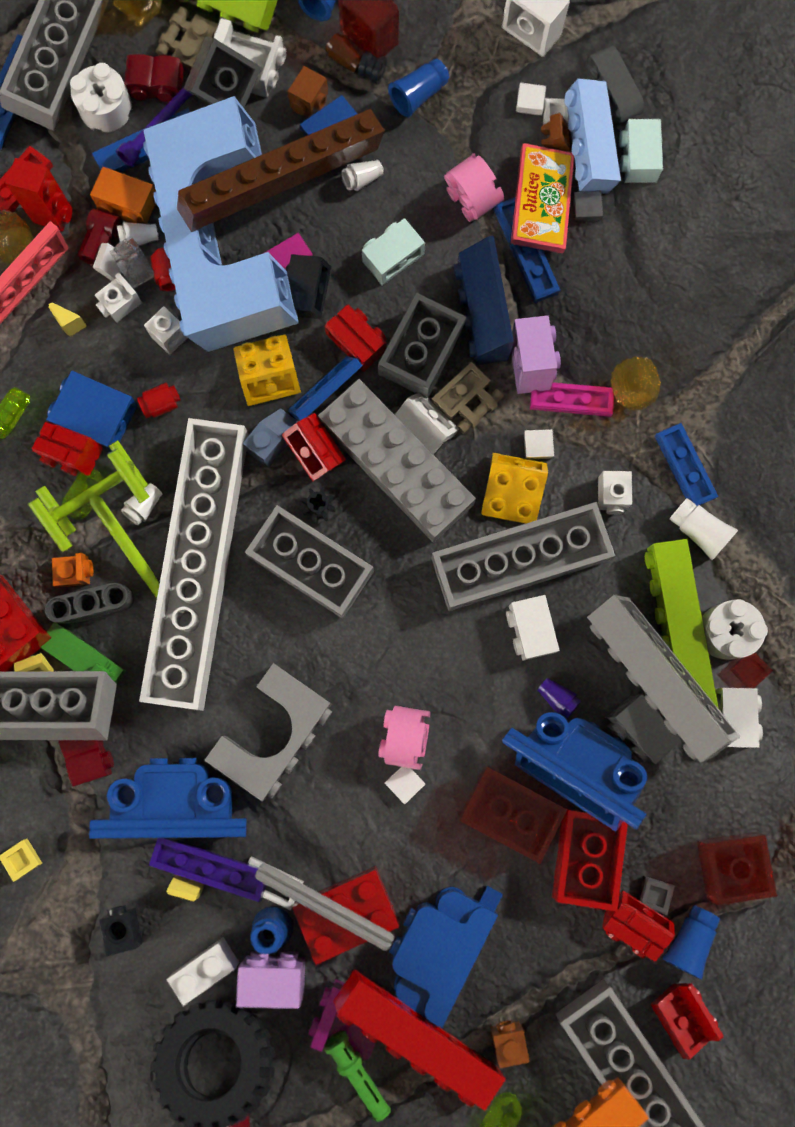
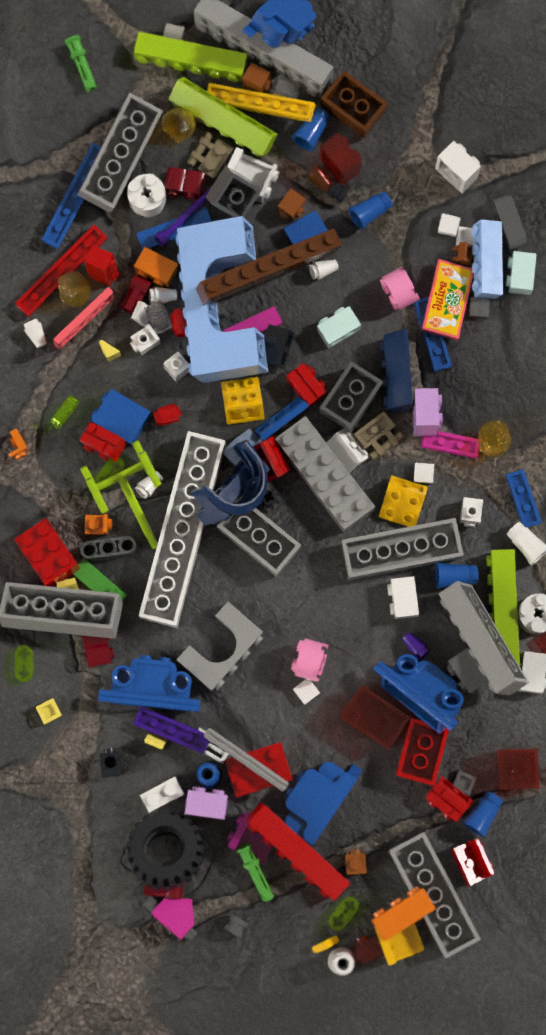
camera: 10 degrees right, 0 degrees up
(246, 519) = (219, 504): none -> dark blue piece
(600, 585) = (450, 573): none -> blue plant

